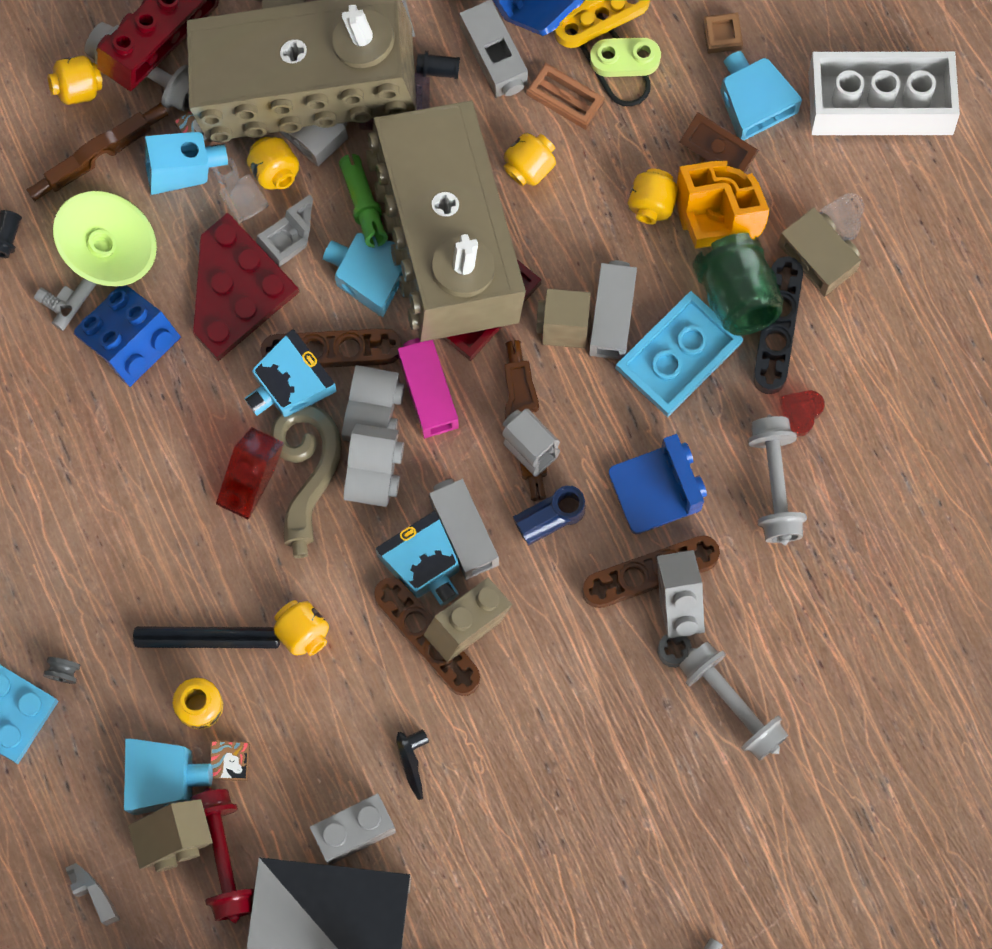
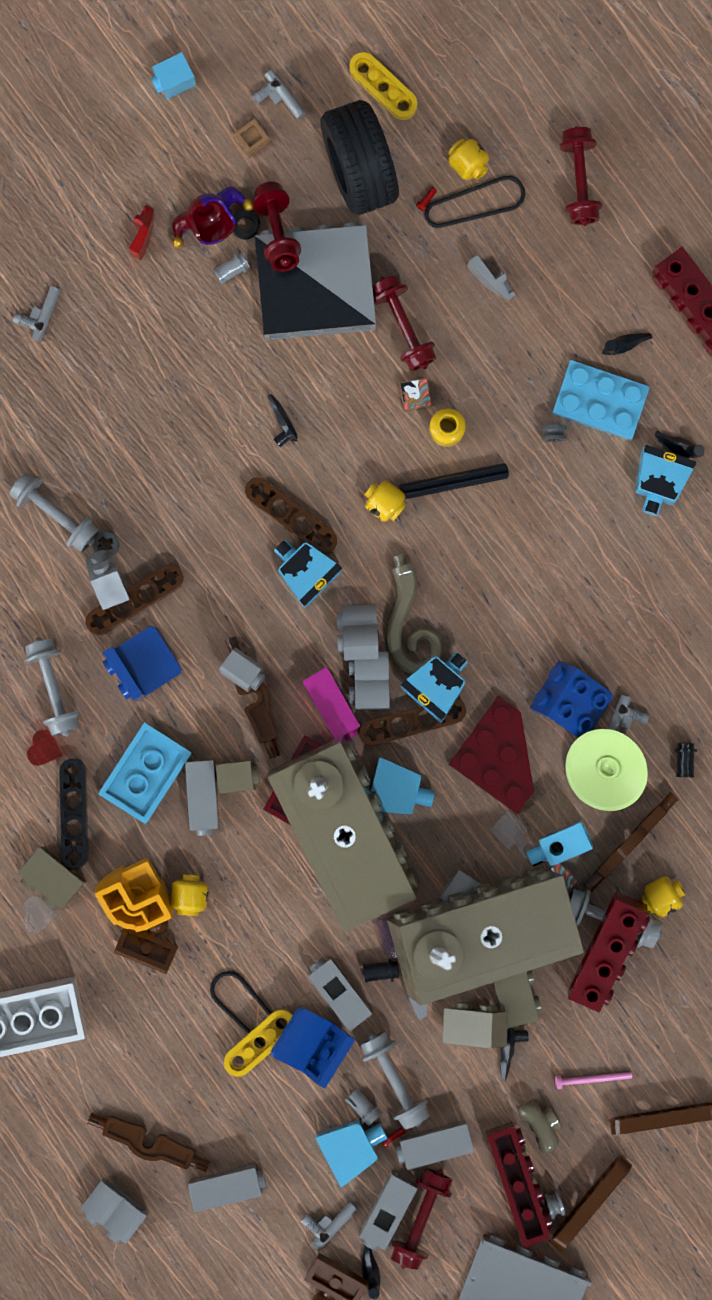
camera: 165 degrees right, 10 degrees up
(160, 775) = (461, 370): medium azure torso -> none
(170, 835) = (442, 325): dark tan brick -> none
(249, 472) = (451, 610): clear red slope -> none
(272, 163) = (491, 860): yellow head -> none
(289, 234) = (467, 807): light grey slope -> none
(353, 829) = (313, 361): light grey brick -> none
(366, 211) = (409, 834): bright green pin -> none
(463, 527) = (281, 601): light grey brick -> none
(467, 619) = (262, 529): dark tan brick -> none
(529, 159) = (292, 906): yellow head -> none
(547, 517) = (220, 623): dark blue piece -> none
(557, 106) = (253, 960): nougat tile -> none
(625, 59) = (234, 1010): yellowish green plate -> none
(722, 33) = (161, 1049): medium nougat tile -> none
(739, 284) = (106, 831): clear green piece -> none
(756, 95) = (125, 998): medium azure torso -> none

